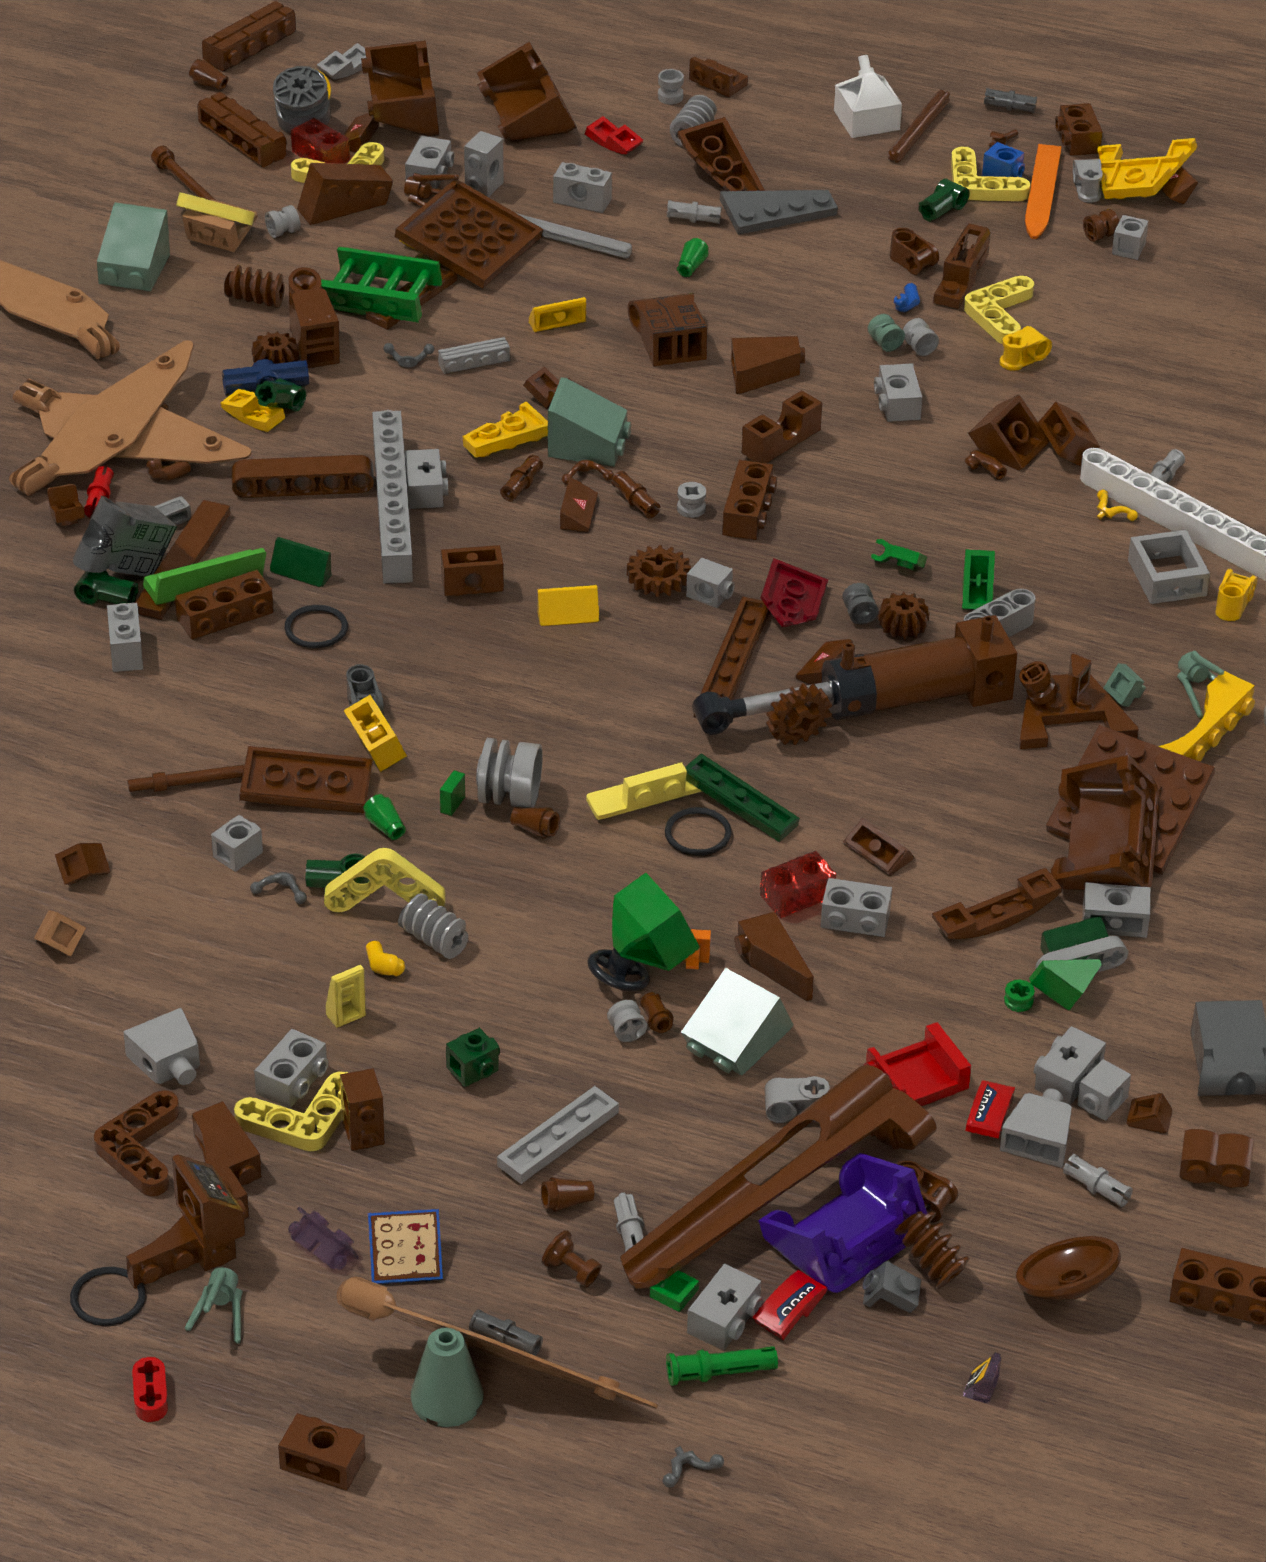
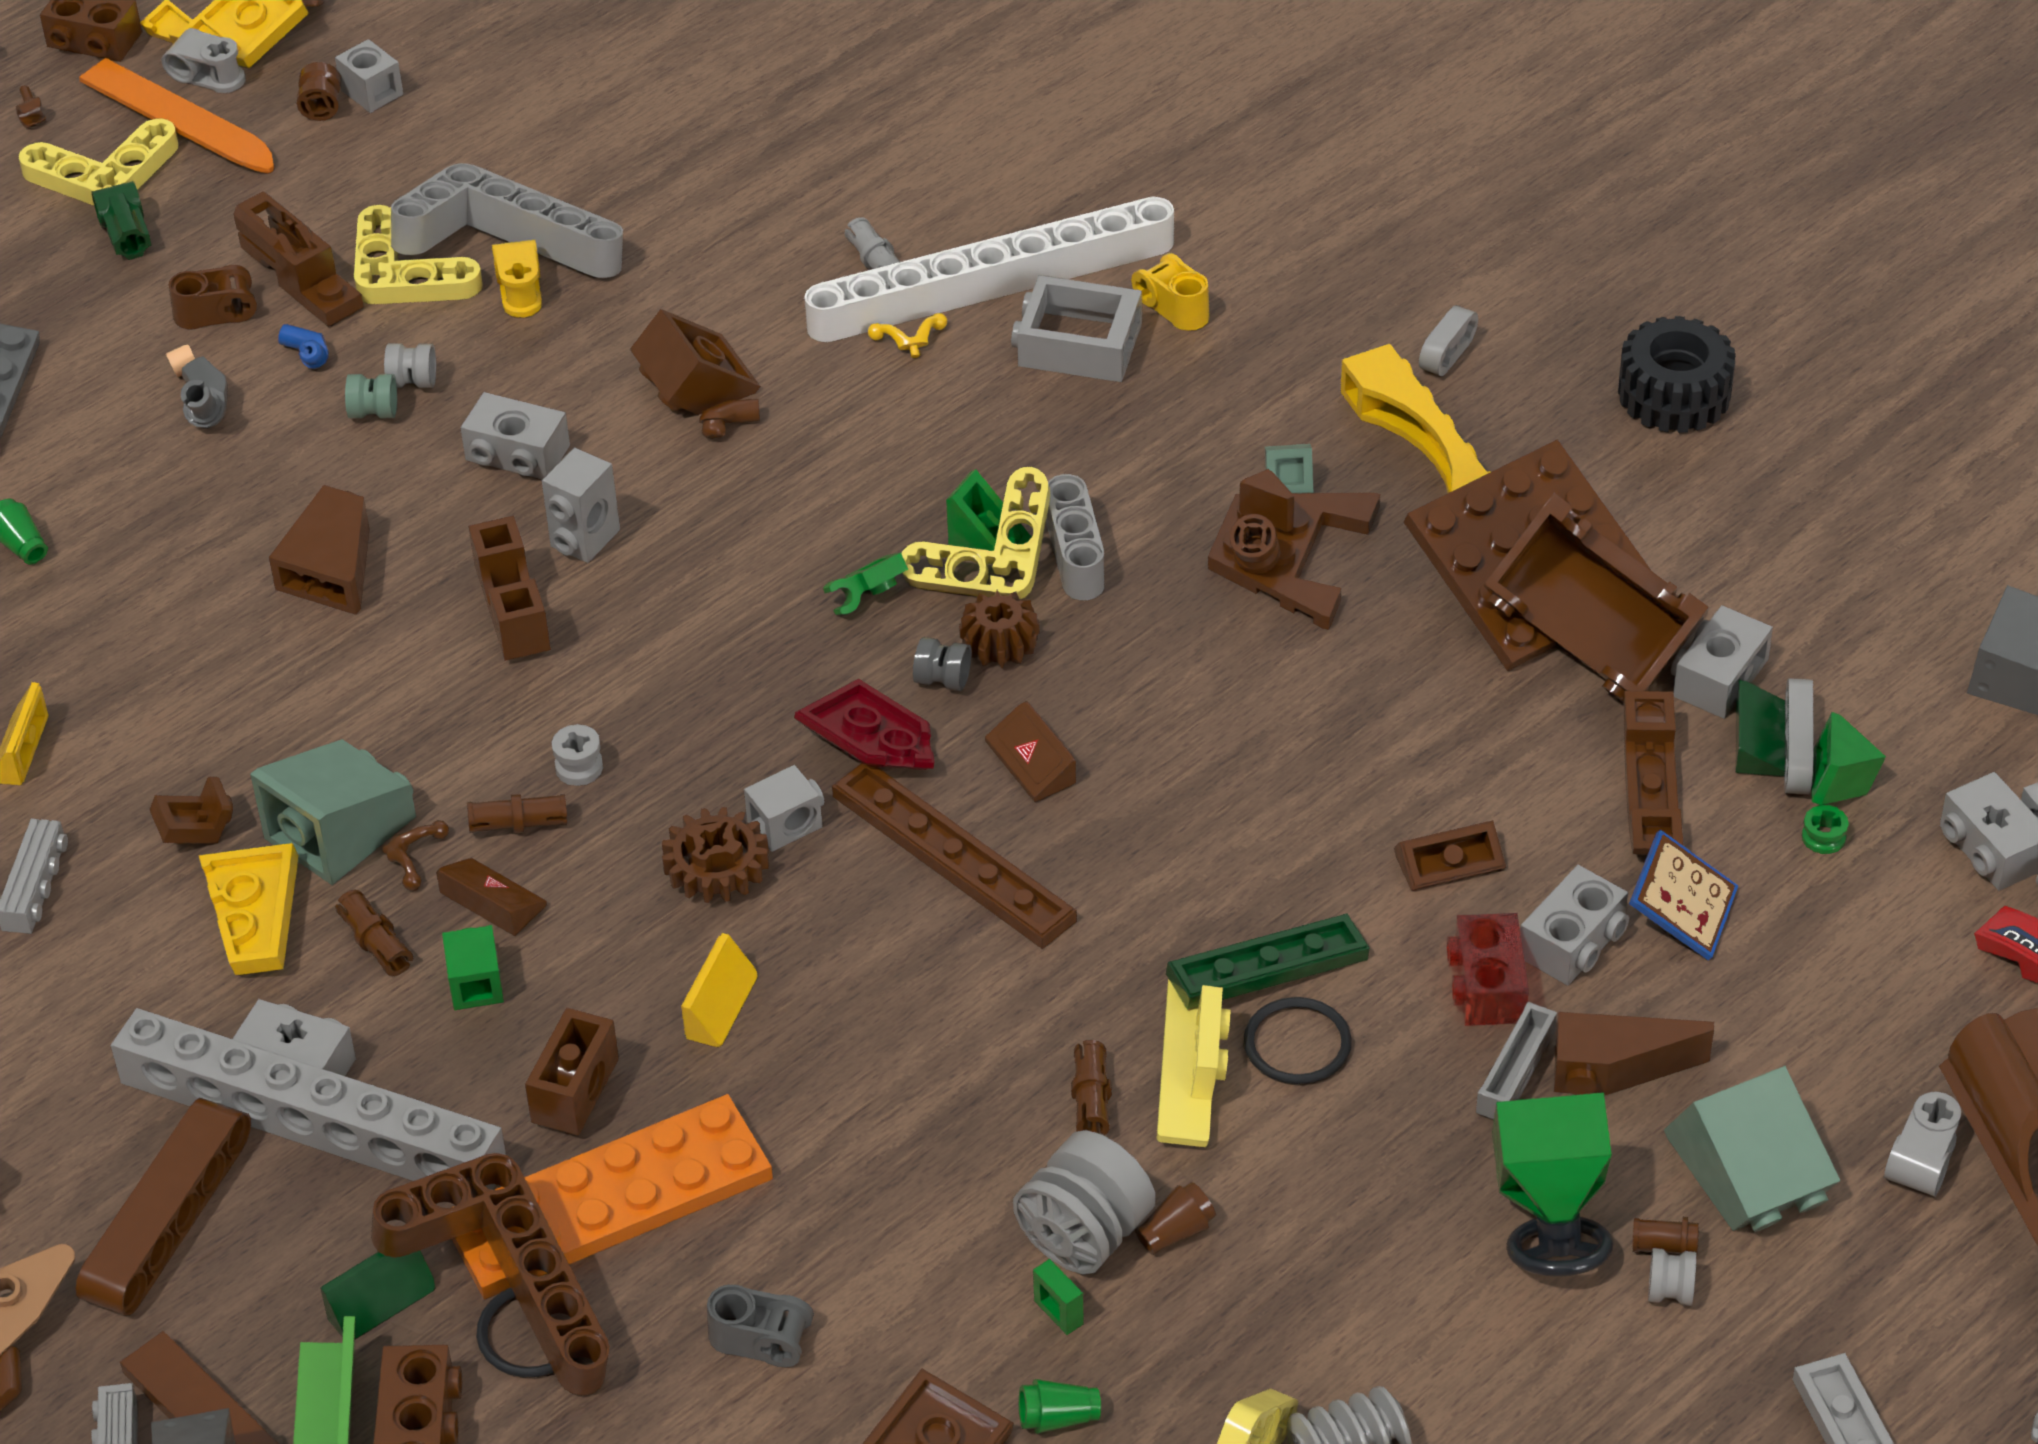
camera: 60 degrees left, 5 degrees up
(359, 573) = (516, 1253): none -> reddish brown beam
(375, 733) = (874, 1339): yellow brick -> none
(415, 620) = (633, 1186): none -> orange plate
(520, 516) = (472, 967): none -> green brick
(601, 761) = (1091, 1087): none -> reddish brown pin
(670, 328) = (169, 618): reddish brown piece -> none
(727, 914) = (1517, 1058): none -> light grey piece
(749, 500) = (628, 691): reddish brown brick -> none
(799, 714) = (1161, 818): reddish brown gear -> none
(841, 279) = (204, 390): none -> dark grey arm
(857, 427) = (581, 505): none -> light grey brick
(912, 944) = (1683, 895): none -> piece
(925, 1069) = (1921, 986): red panel -> none
(959, 596) = (1005, 555): none -> light yellow beam
(972, 663) = (1140, 721): reddish brown piece -> none
(1003, 161) = (99, 125): blue brick -> none
(1065, 307) = (508, 211): none -> light grey beam
(1067, 433) = (749, 304): reddish brown brick -> none
(1196, 669) = (1298, 388): sand green plant -> none

